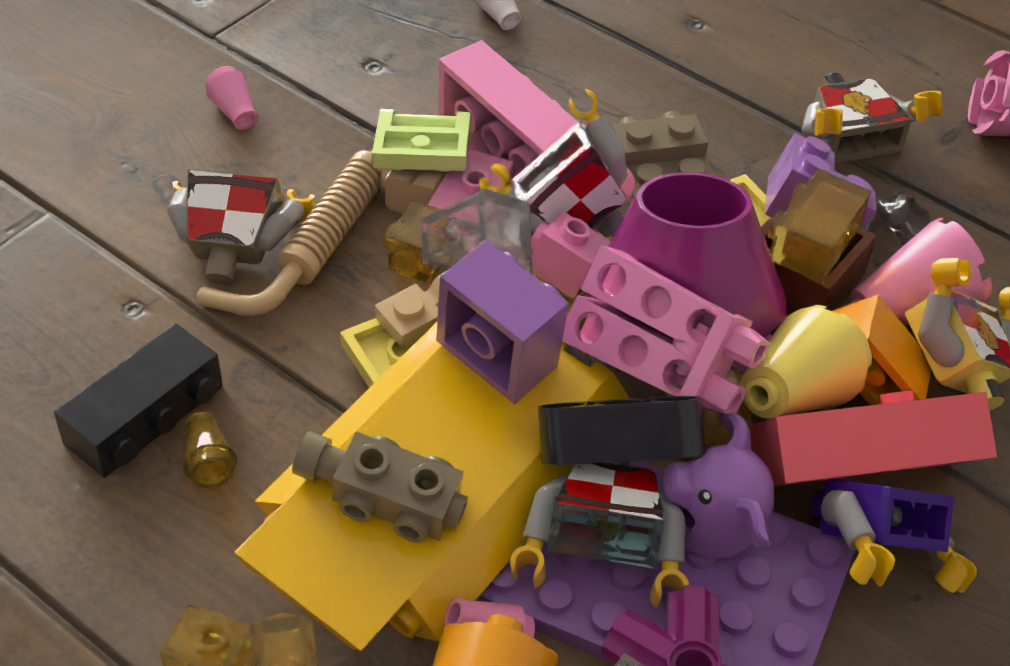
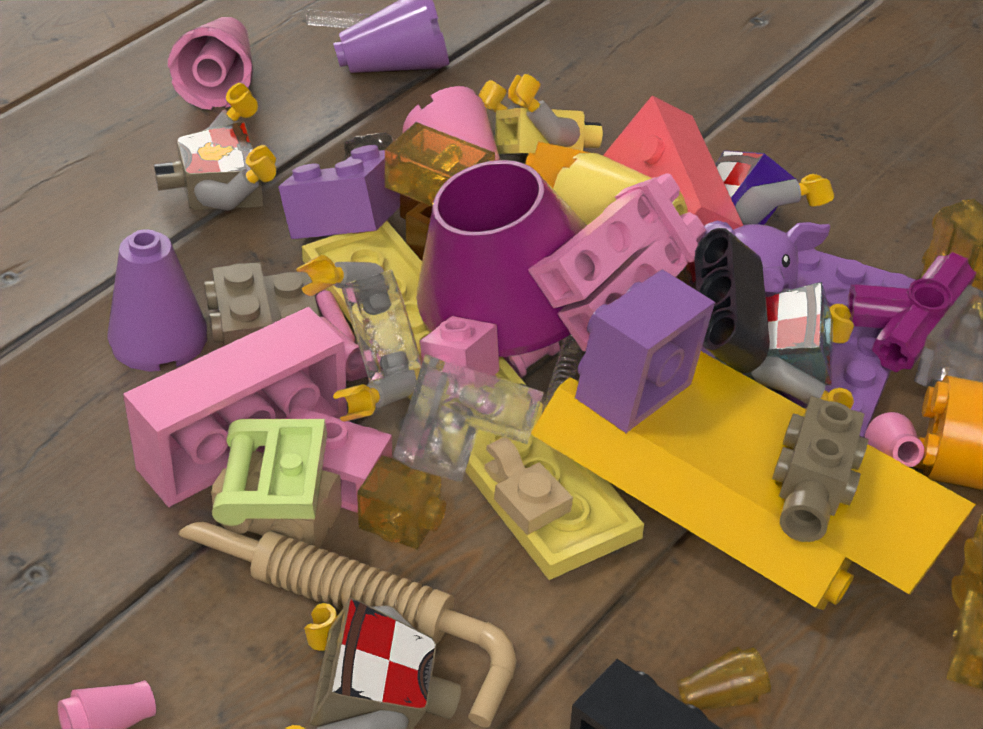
camera: 90 degrees left, 5 degrees down
(637, 73) = (153, 306): none -> medium lavender cone

